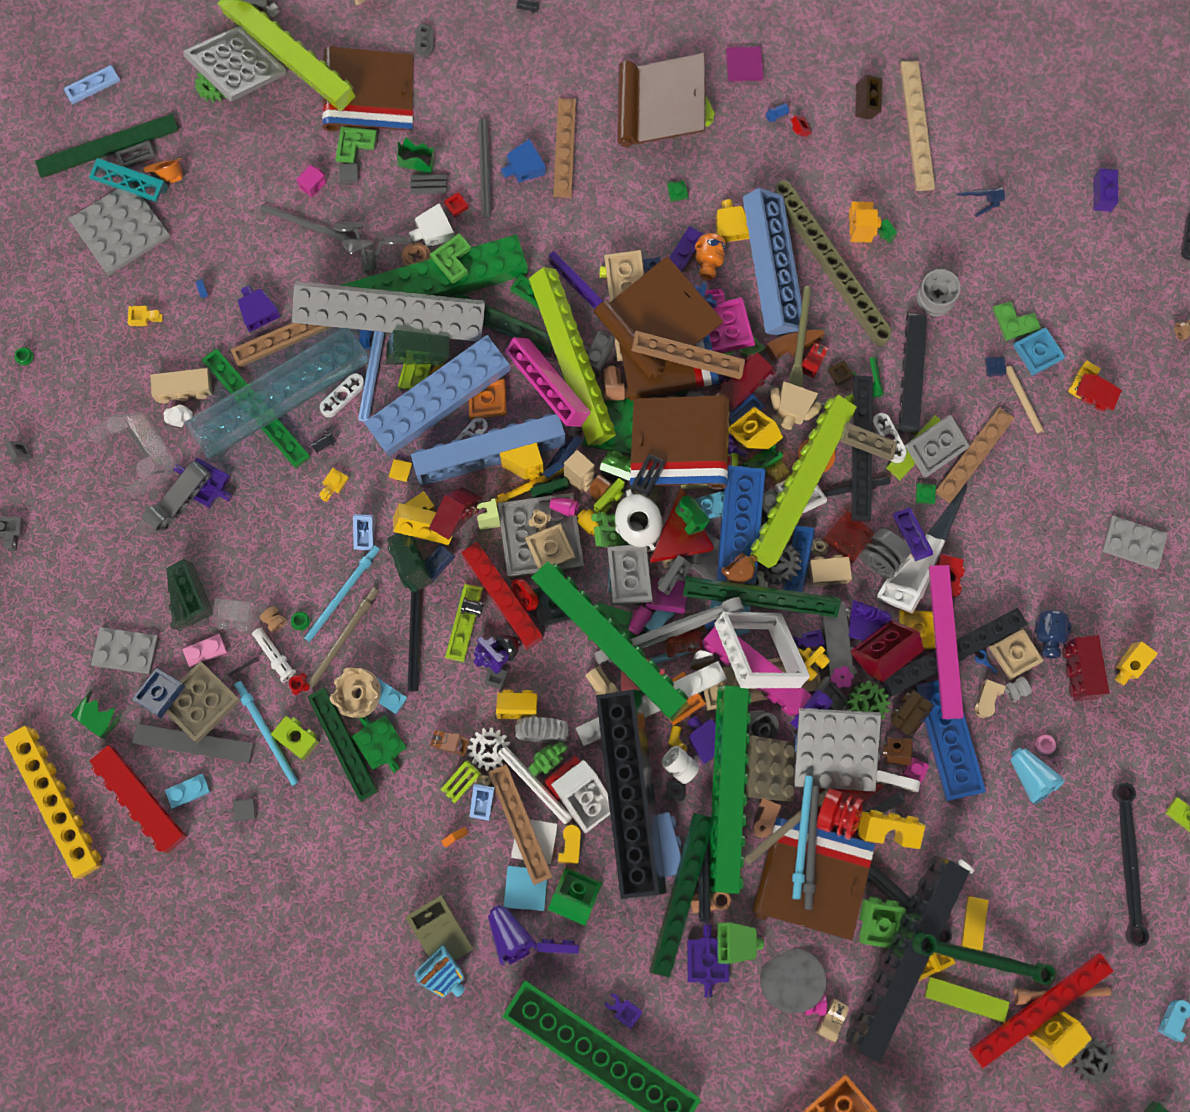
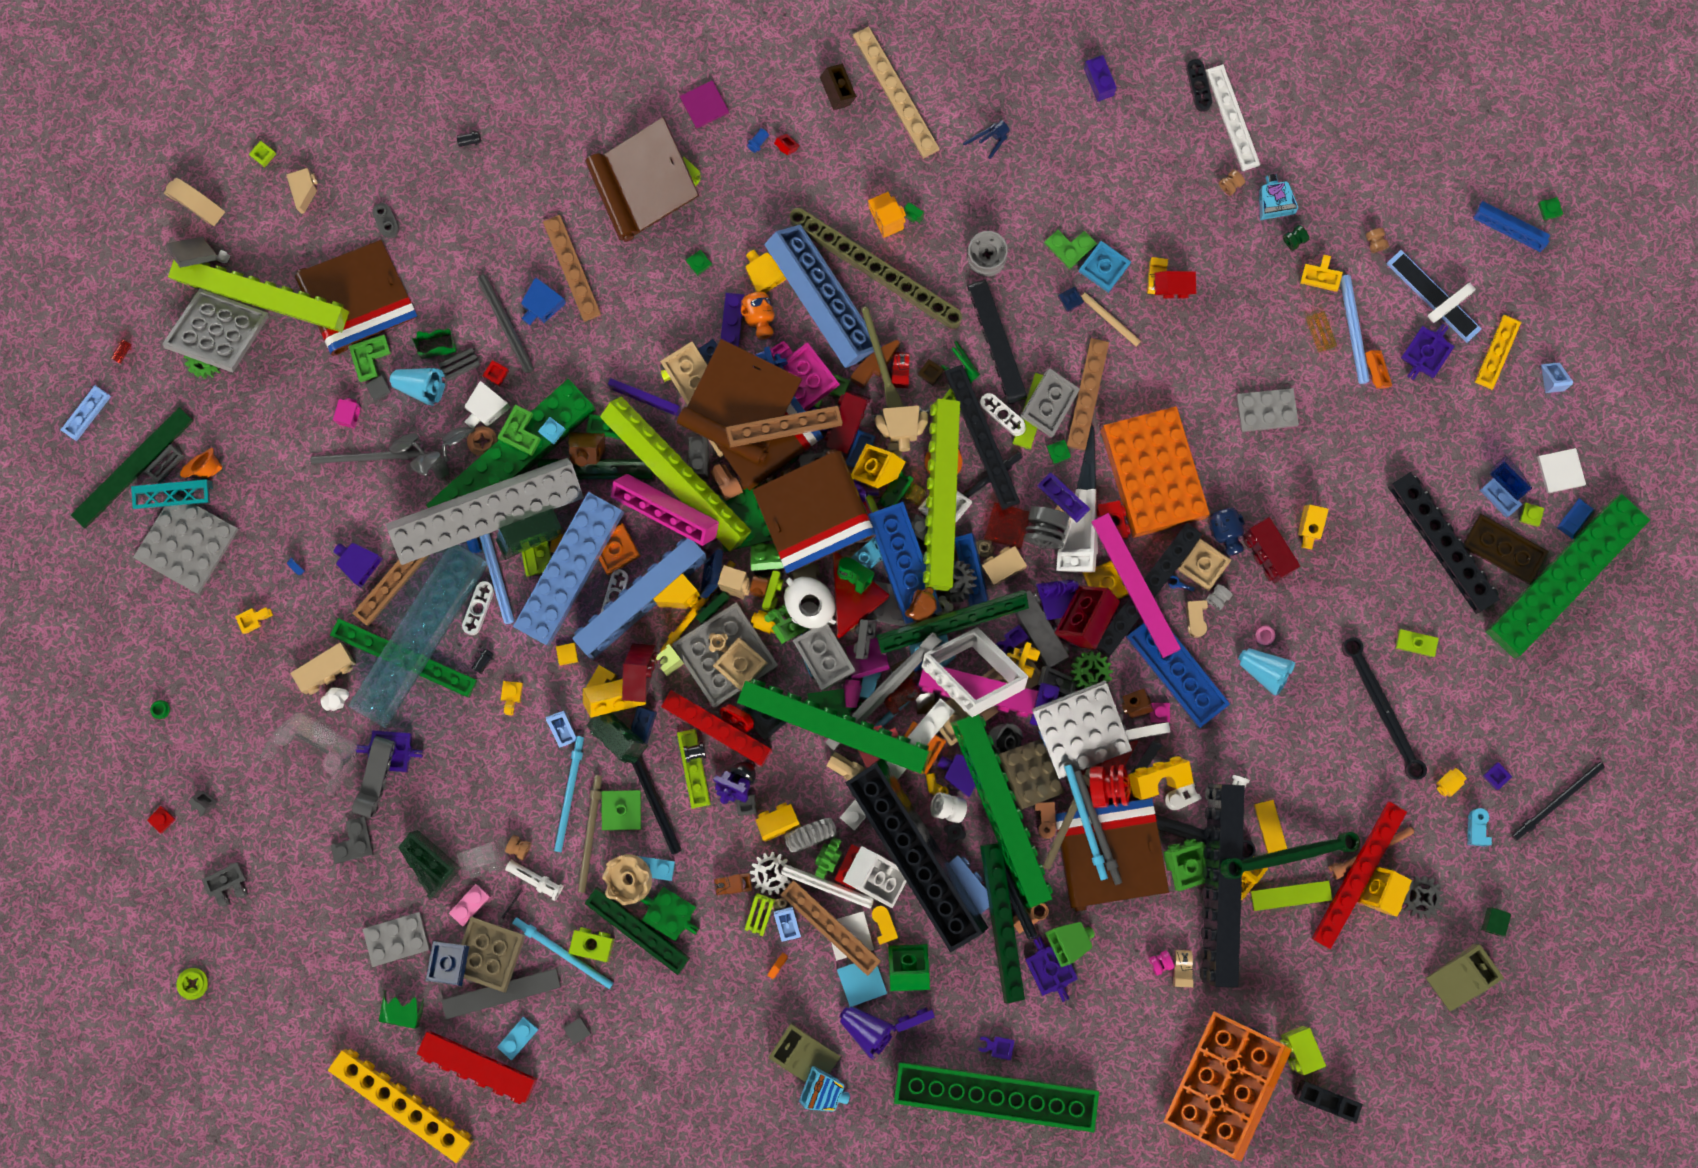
camera: 15 degrees left, 5 degrees up
(133, 552) = (357, 846): none -> dark grey plate
(147, 47) = (121, 351): none -> clear red pin
(293, 684) = (565, 895): red plate -> none
(300, 621) = (543, 837): green plate -> none
(381, 629) = (621, 810): none -> bright green plate
(386, 184) = (420, 384): none -> medium azure cone
(480, 270) = (551, 430): none -> medium azure plate
(504, 300) = (586, 447): none -> reddish brown torso
(564, 506) = (737, 618): dark pink cone -> none
(641, 489) = (800, 556): black tile -> none
(793, 981) = (1133, 951): flat silver sticker -> none
(847, 677) = (1062, 658): magenta plant -> none
(868, 441) = (985, 429): dark tan tile -> none
(895, 857) = (1175, 800): none -> white plate
(912, 713) = (1134, 663): dark brown brick -> none
(1006, 550) = (1154, 472): none -> orange brick
(1166, 963) = (1451, 782): none -> yellow brick

